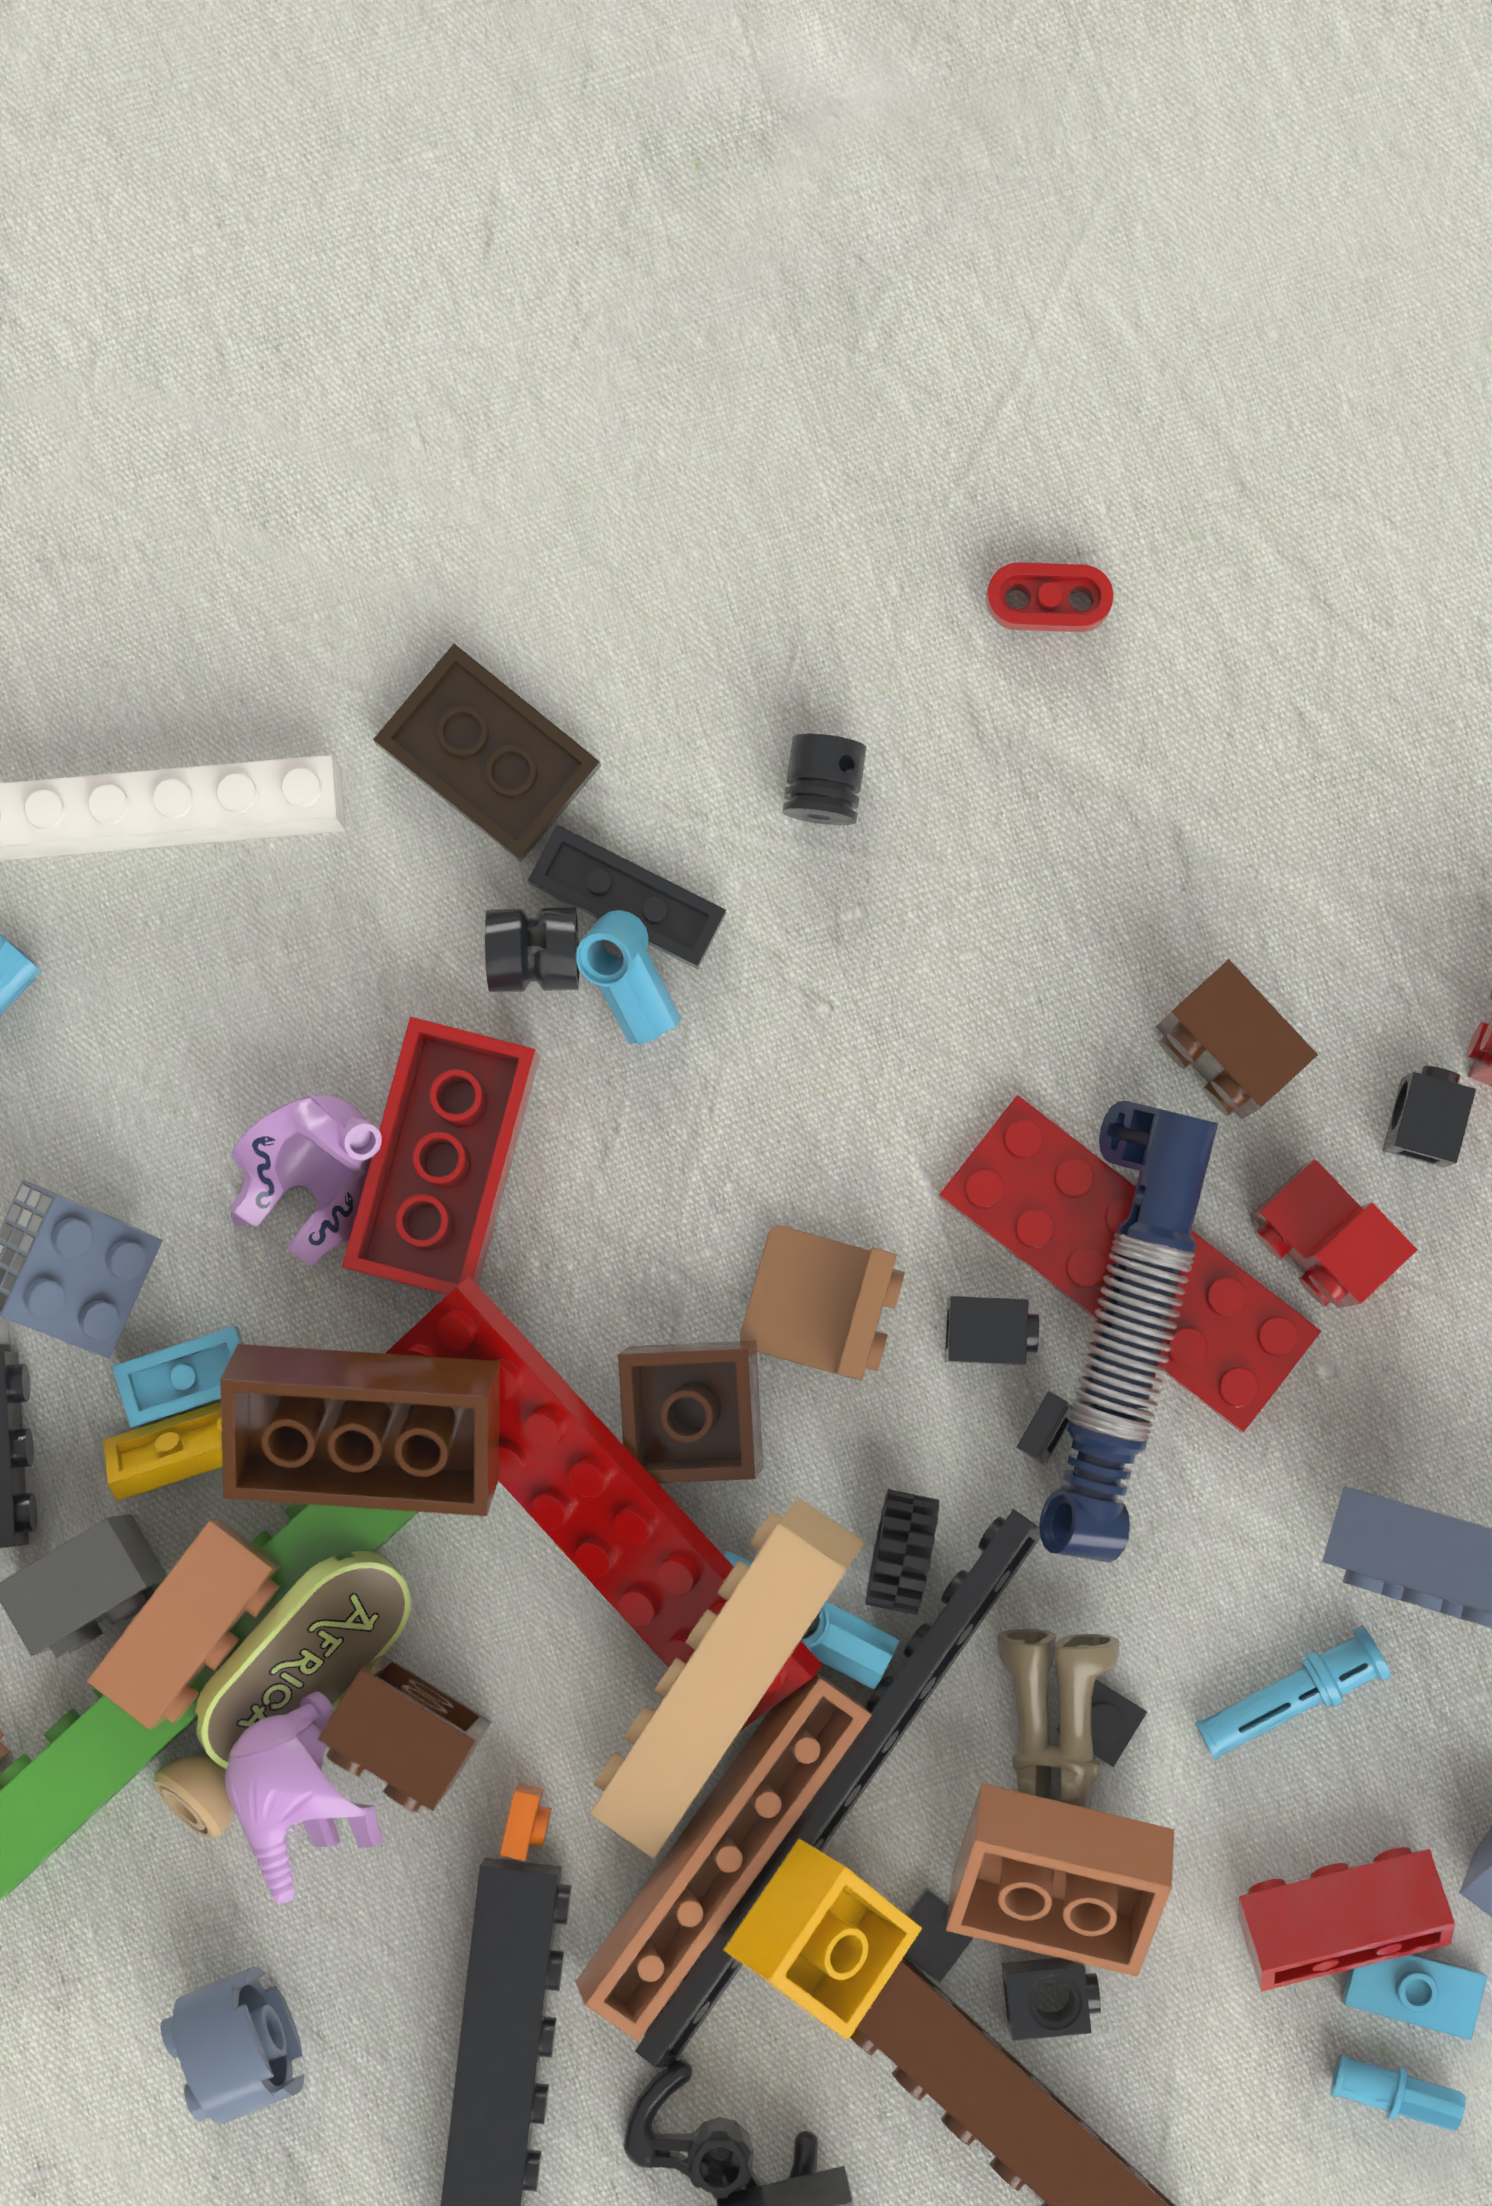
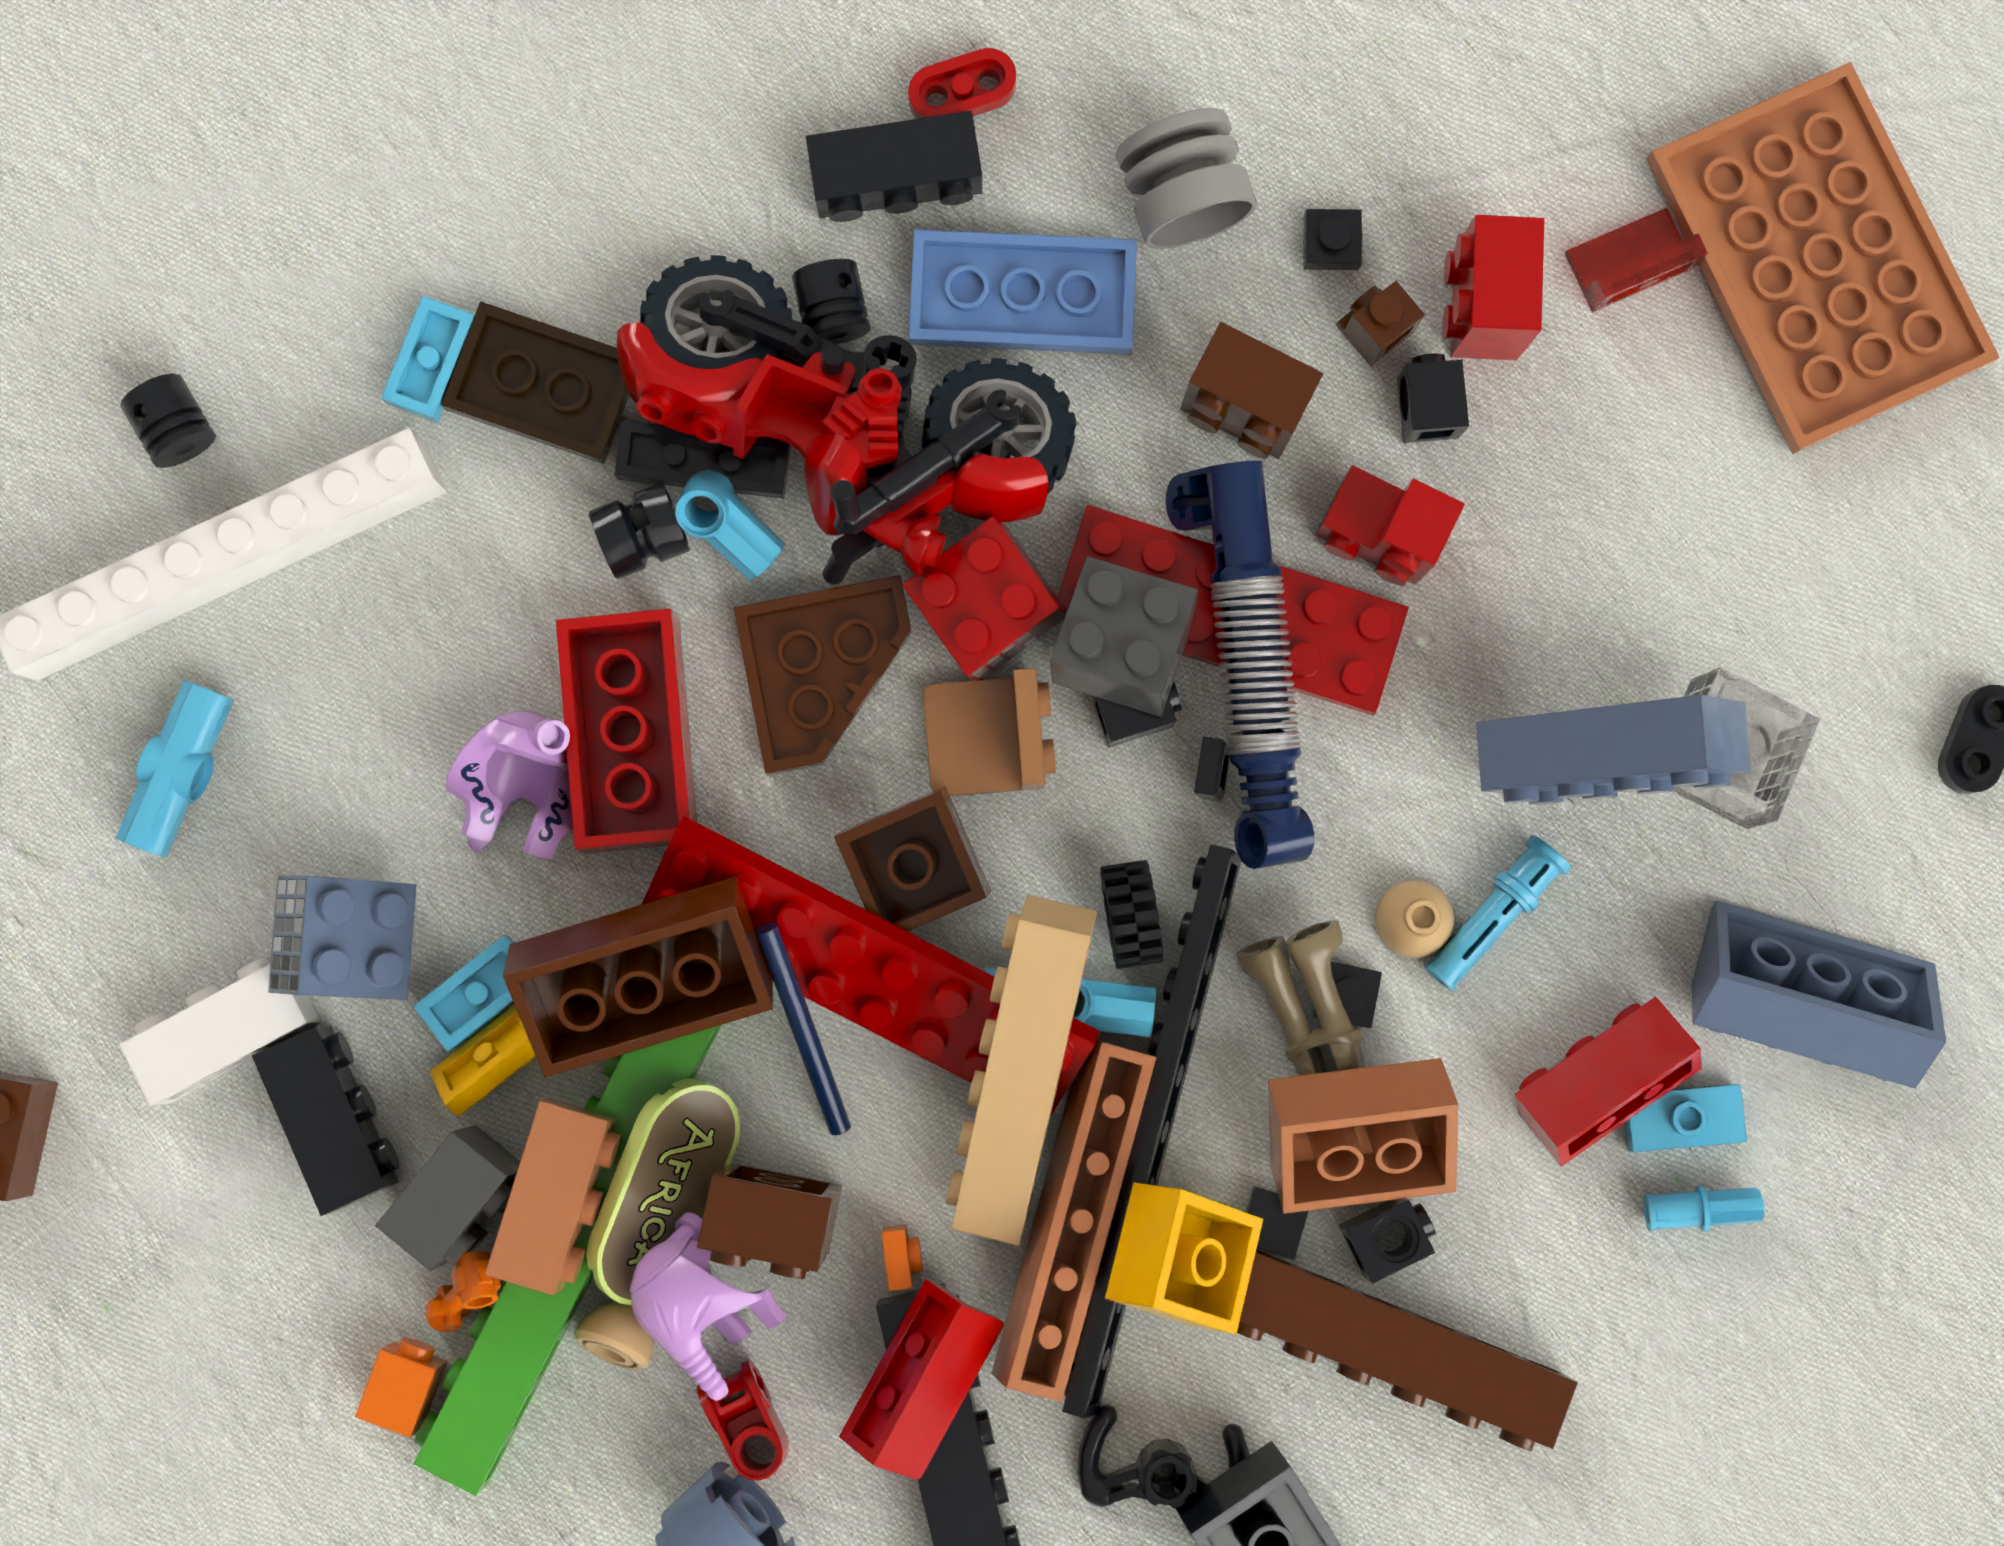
camera: 25 degrees left, 0 degrees up
(63, 1690) = (469, 1291): none -> orange bar
(81, 651) = (167, 420): none -> black piece
(300, 1930) = (745, 1417): none -> red piece
(377, 684) = (428, 359): none -> medium azure plate
(498, 1963) = (921, 1381): none -> red panel
(511, 1544) = (803, 1028): none -> dark blue bar
(667, 1159) = (816, 664): none -> reddish brown plate
(794, 906) = (843, 413): none -> piece
(871, 1159) = (986, 599): none -> red brick
(946, 657) = (895, 166): none -> black brick
(1002, 1255) = (1123, 636): none -> dark grey brick
(1033, 841) = (1022, 292): none -> medium blue plate
(1204, 1667) = (1414, 919): none -> tan brick
(1251, 777) = (1186, 178): none -> light grey wheel
(1387, 904) = (1332, 239): none -> black plate
(1404, 1013) = (1380, 321): none -> reddish brown brick

